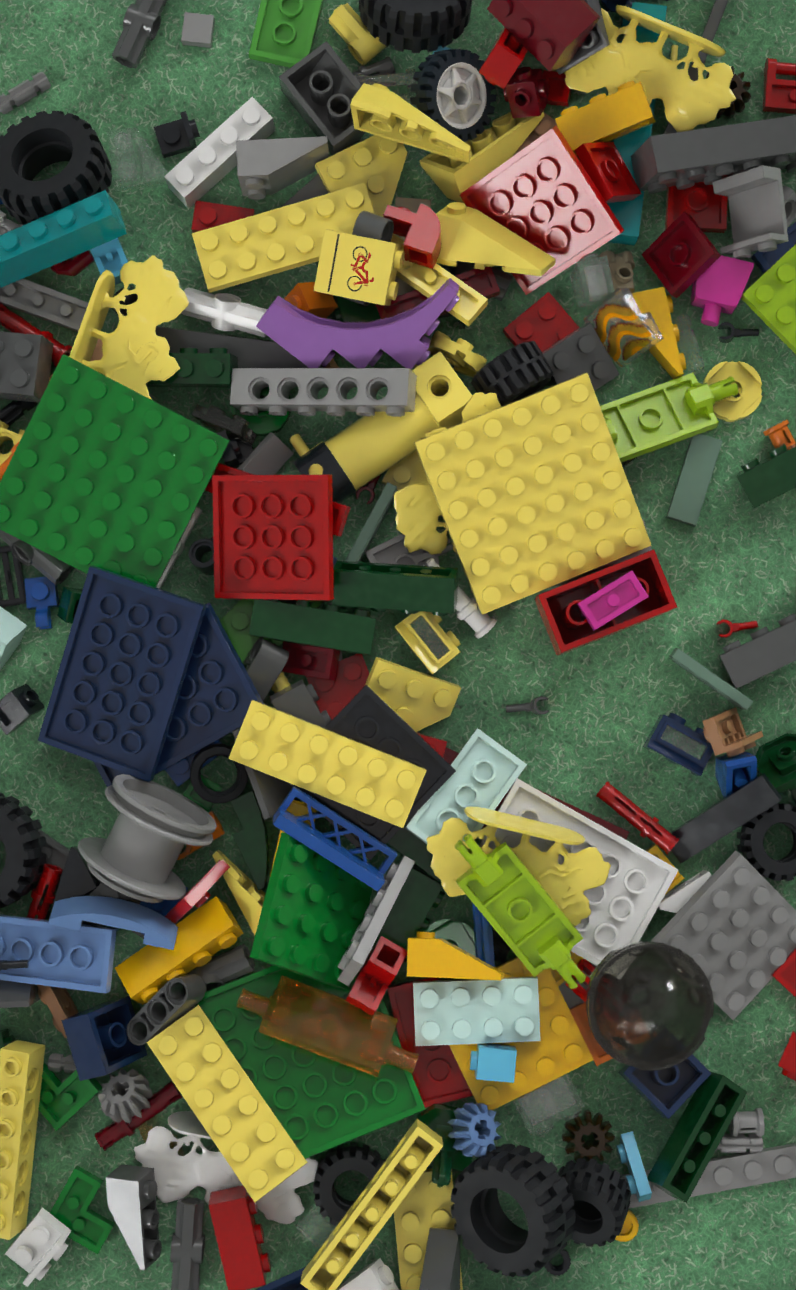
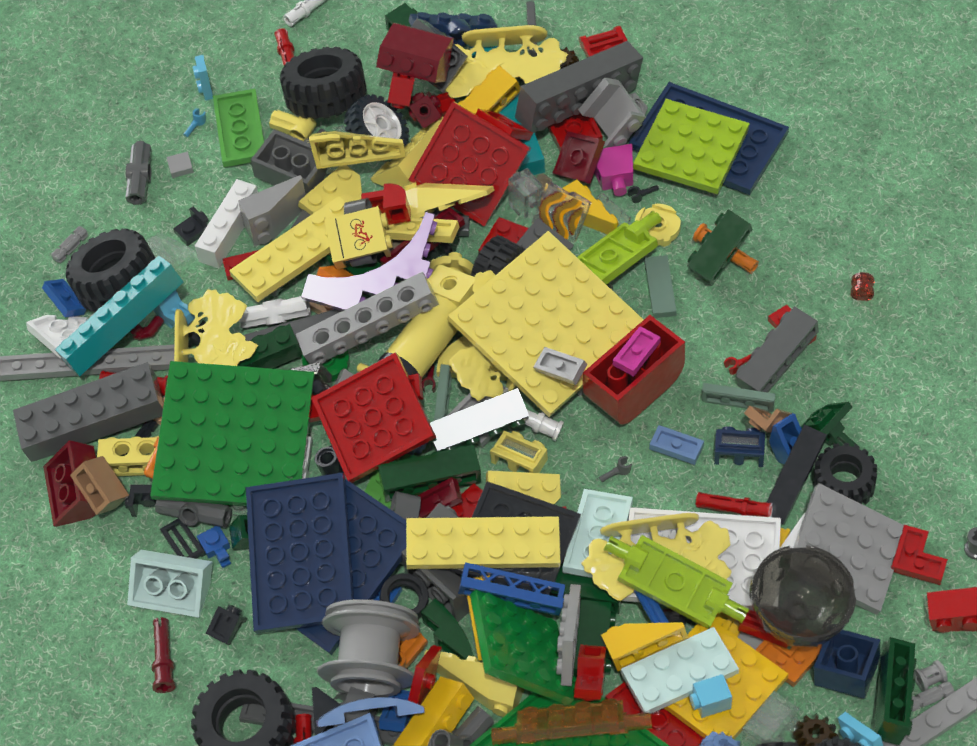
camera: 15 degrees left, 30 degrees down
(516, 572) = (560, 365): none -> light grey plate
(611, 707) = (676, 445): none -> medium blue plate

